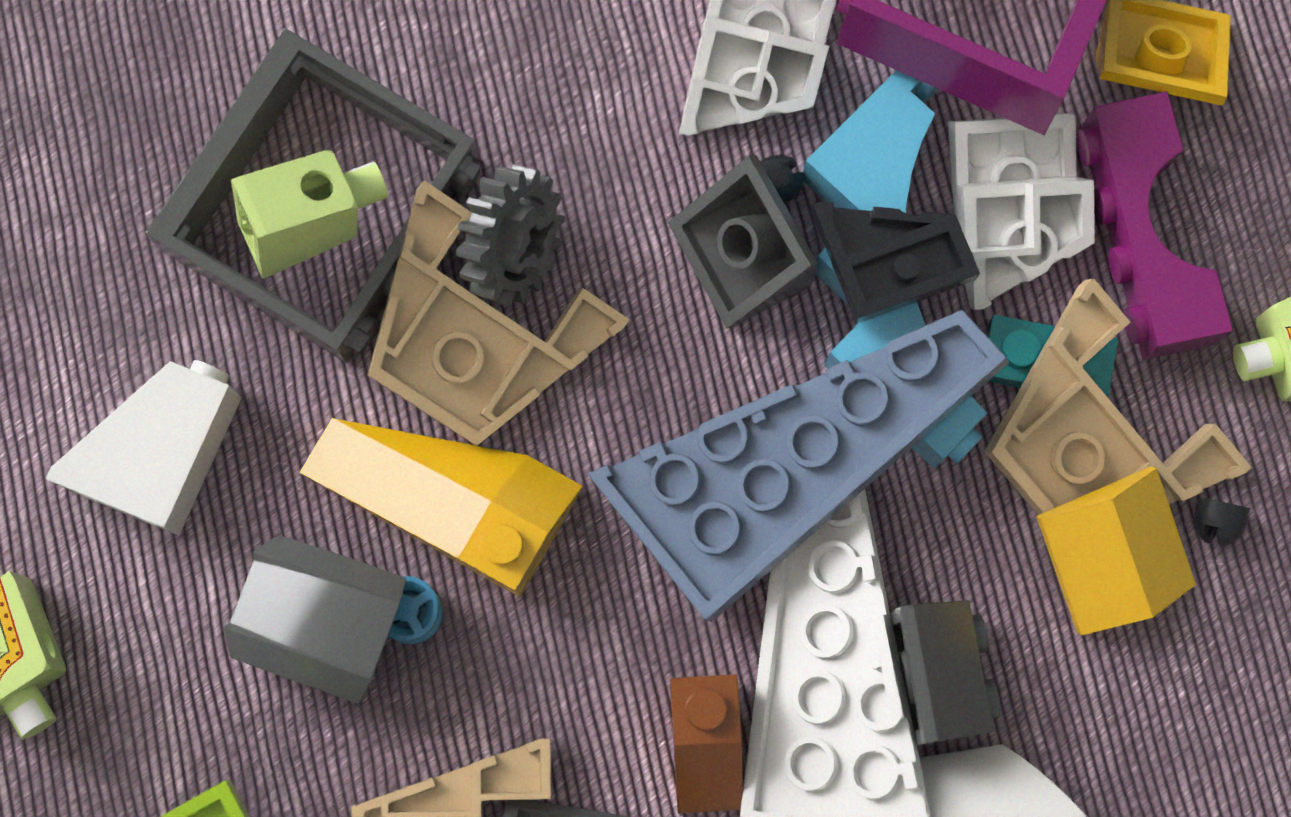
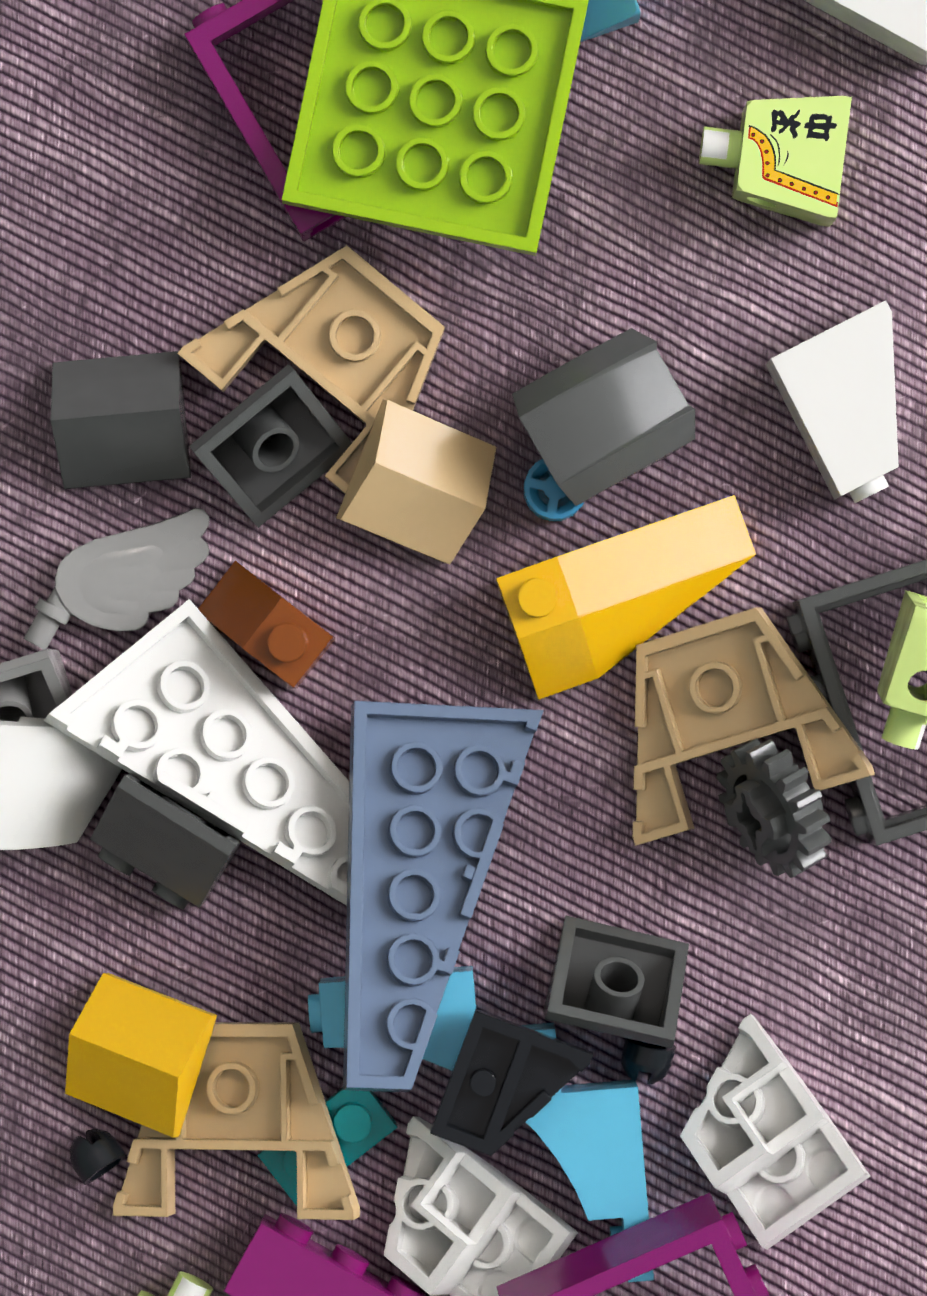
camera: 135 degrees right, 10 degrees up
(493, 719) = (419, 483): none -> tan slope

